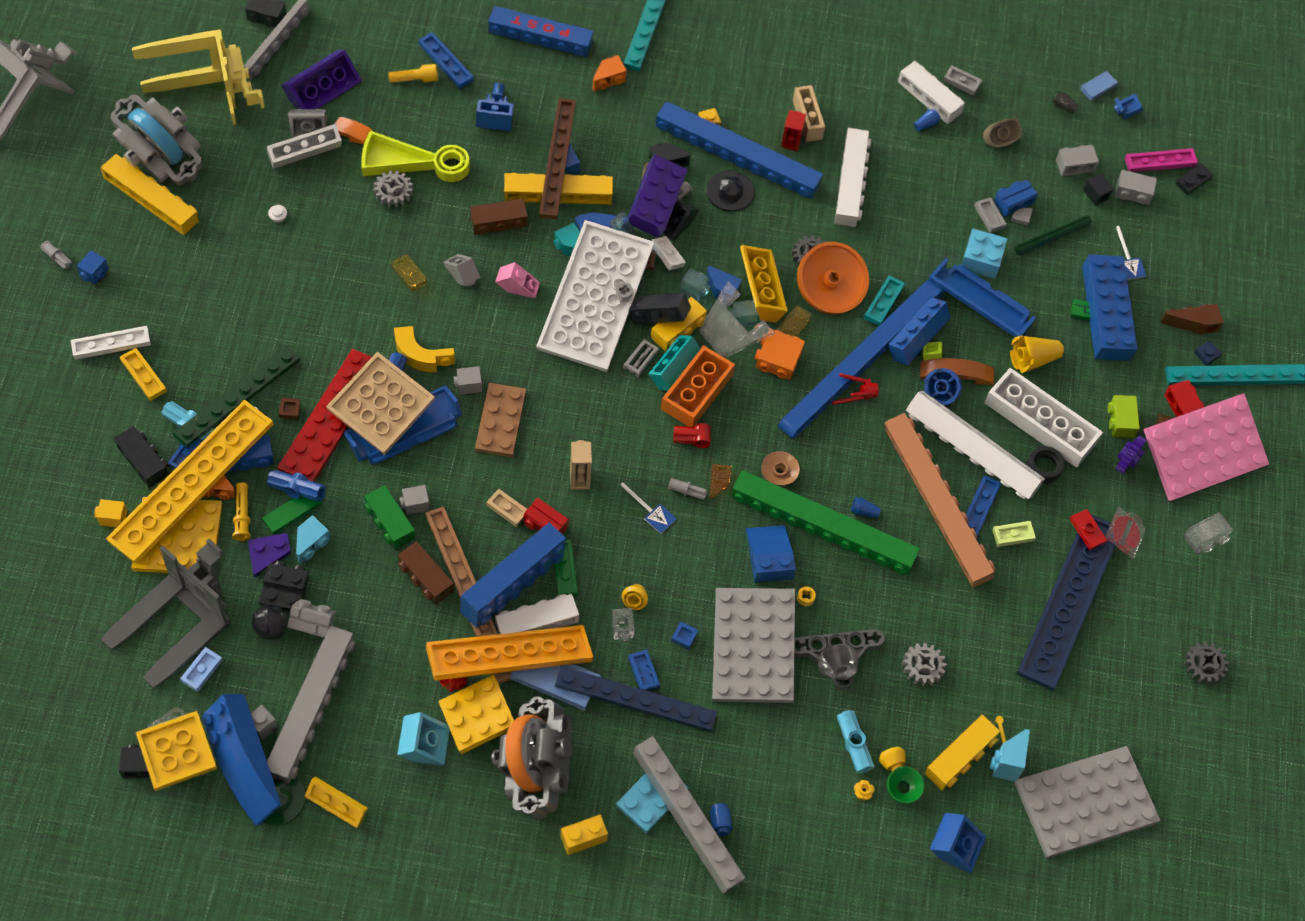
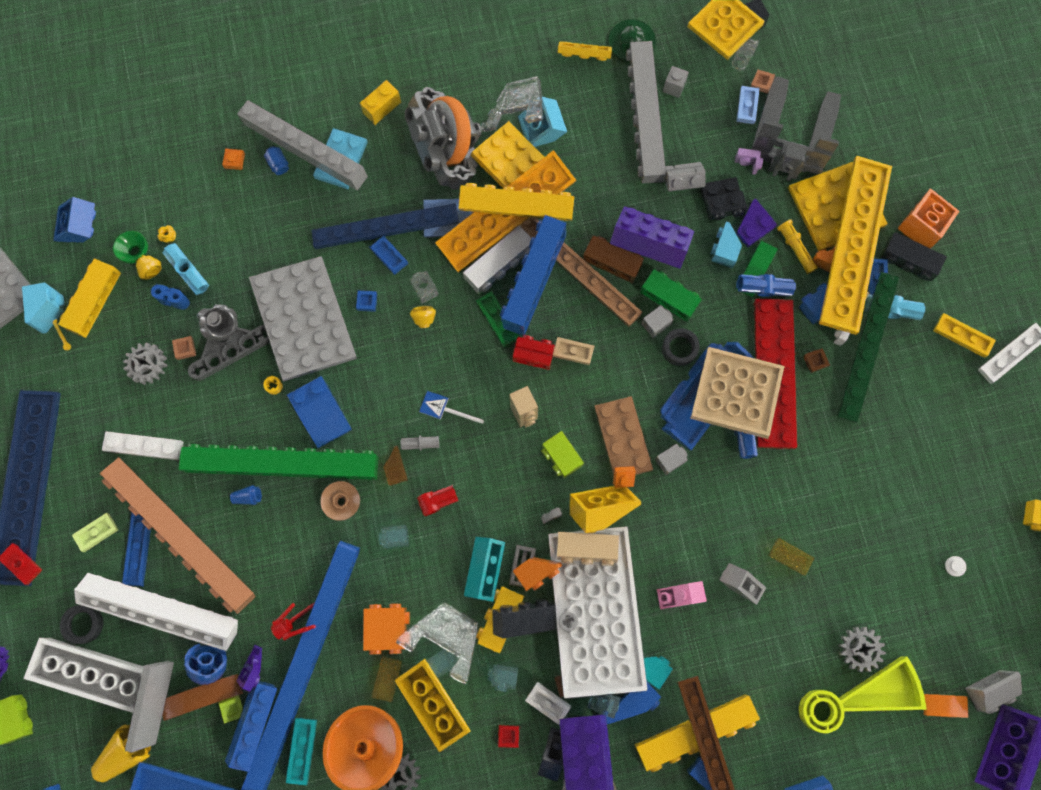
camera: 165 degrees right, 15 degrees up
(103, 479) = (929, 219): none -> orange slope
(110, 513) = (903, 196): yellow brick -> none
(170, 686) = (763, 81): none -> nougat plate
(235, 613) = (749, 157): none -> lavender bracket
(241, 756) = (679, 47): blue slope -> none
(269, 621) = (717, 158): black piece -> none
(304, 146) = (979, 655): white brick -> none
(379, 570) = (652, 237): none -> dark purple brick
(406, 456) = (690, 336): none -> black tyre
(419, 357) = (739, 466): yellow arch -> none
(435, 772) = (517, 97): none -> clear wing
(497, 643) = (516, 203): none -> yellow brick
(498, 216) = (739, 665): reddish brown brick -> none
(518, 383) = (624, 477): none -> orange plate
(549, 365) = (601, 507): none -> yellow slope
(563, 424) = (562, 455): none -> lime brick
(580, 338) = (587, 548): none -> tan brick
(596, 383) = (555, 513): none -> light grey tile
(631, 340) = (535, 570): none -> orange slope
(697, 386) = (451, 551): orange brick -> none
(710, 247) = (508, 736): none -> red tile
(718, 280) = (475, 689): blue slope -> none
(743, 421) = (394, 537): none -> clear light blue brick
(766, 845) = (233, 159): none -> orange plate
(876, 715) = (170, 297): none -> blue piece
(881, 664) = (184, 348): none -> nougat plate
(906, 367) = (250, 672): none -> dark purple wing
(949, 593) = (142, 446): none -> white plate
(999, 371) = (149, 705): none -> light grey tile

